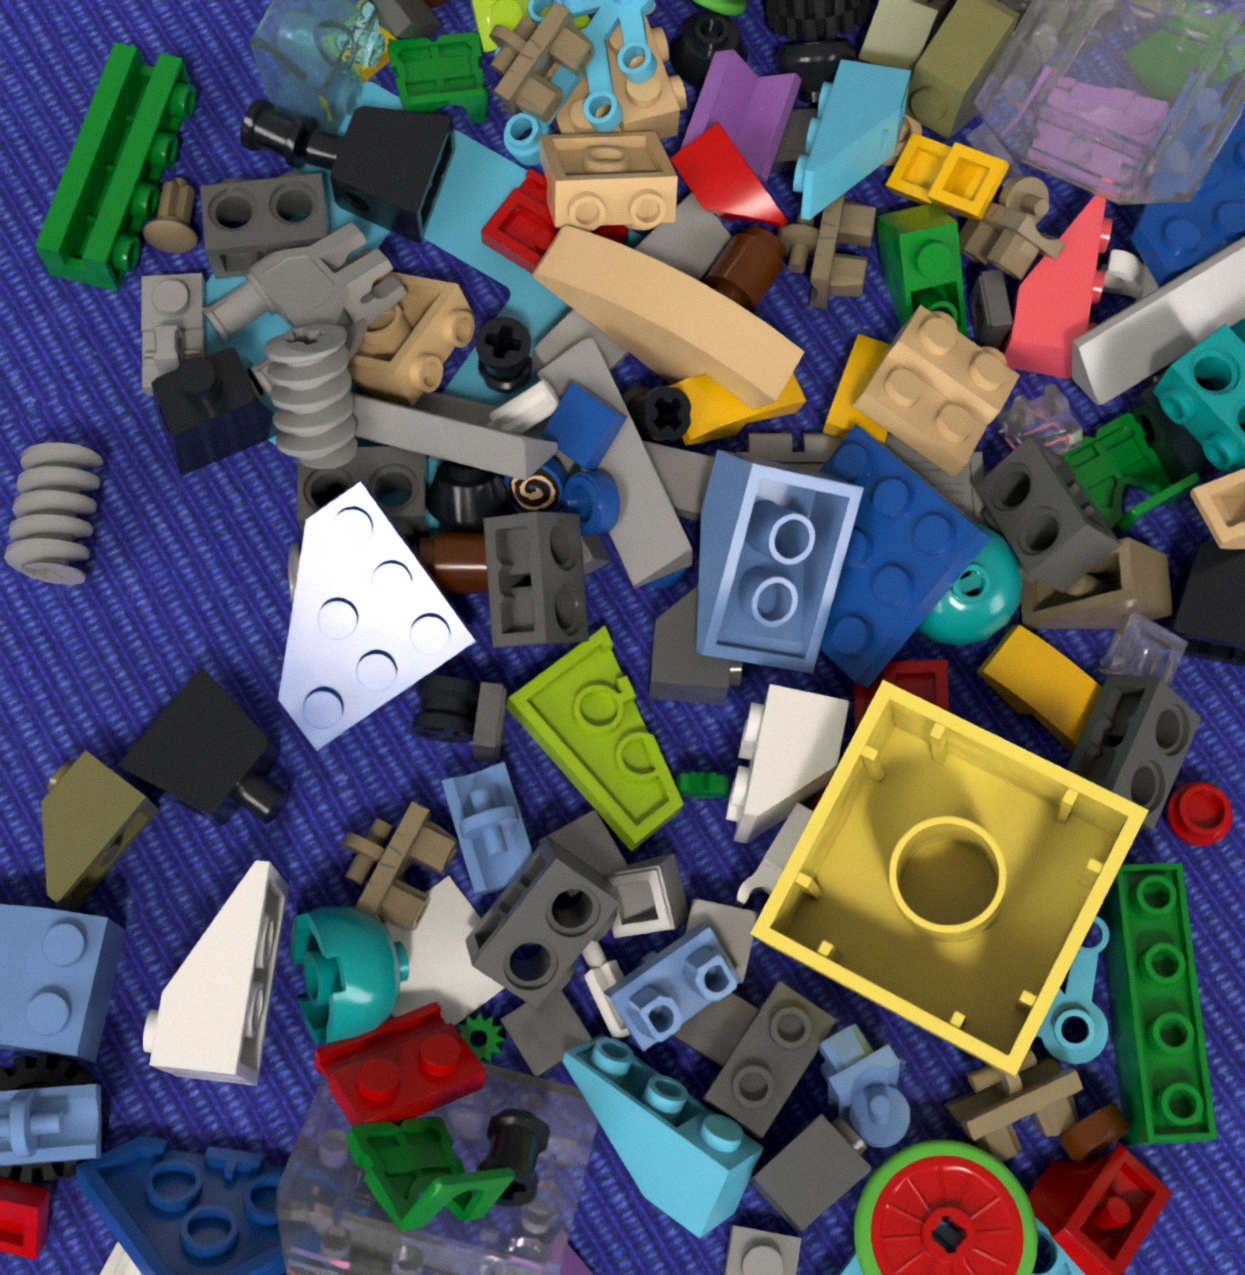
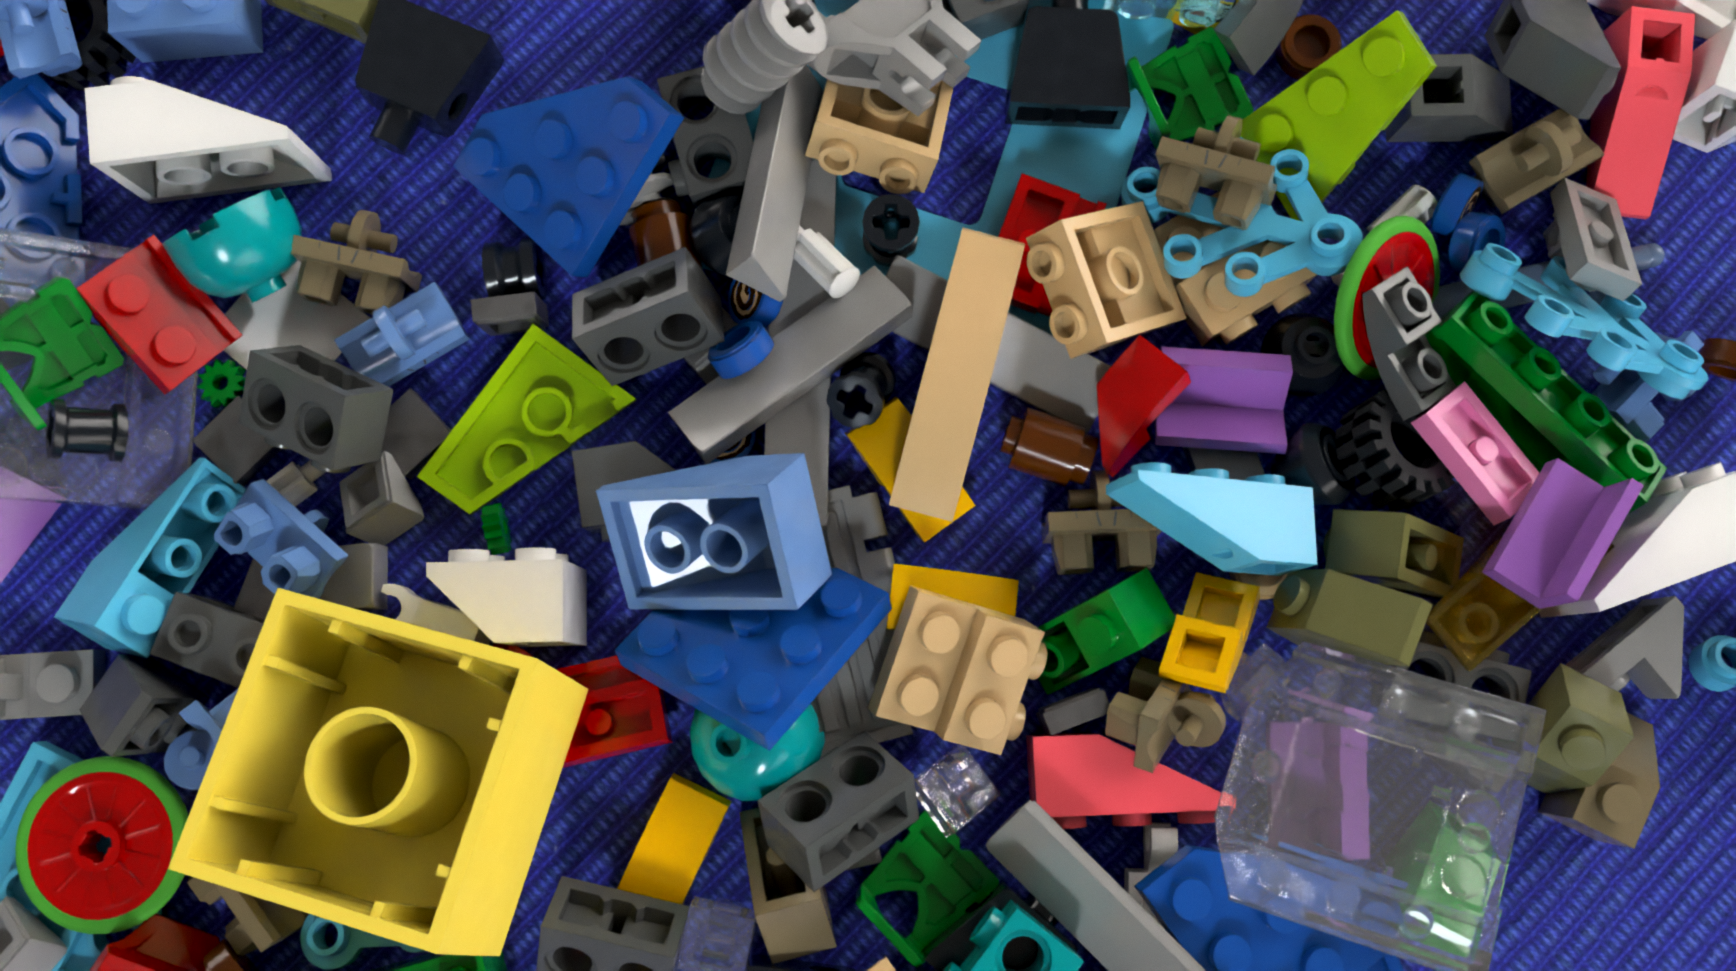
camera: 80 degrees right, 10 degrees up
(583, 426) = (813, 320): blue tile -> none

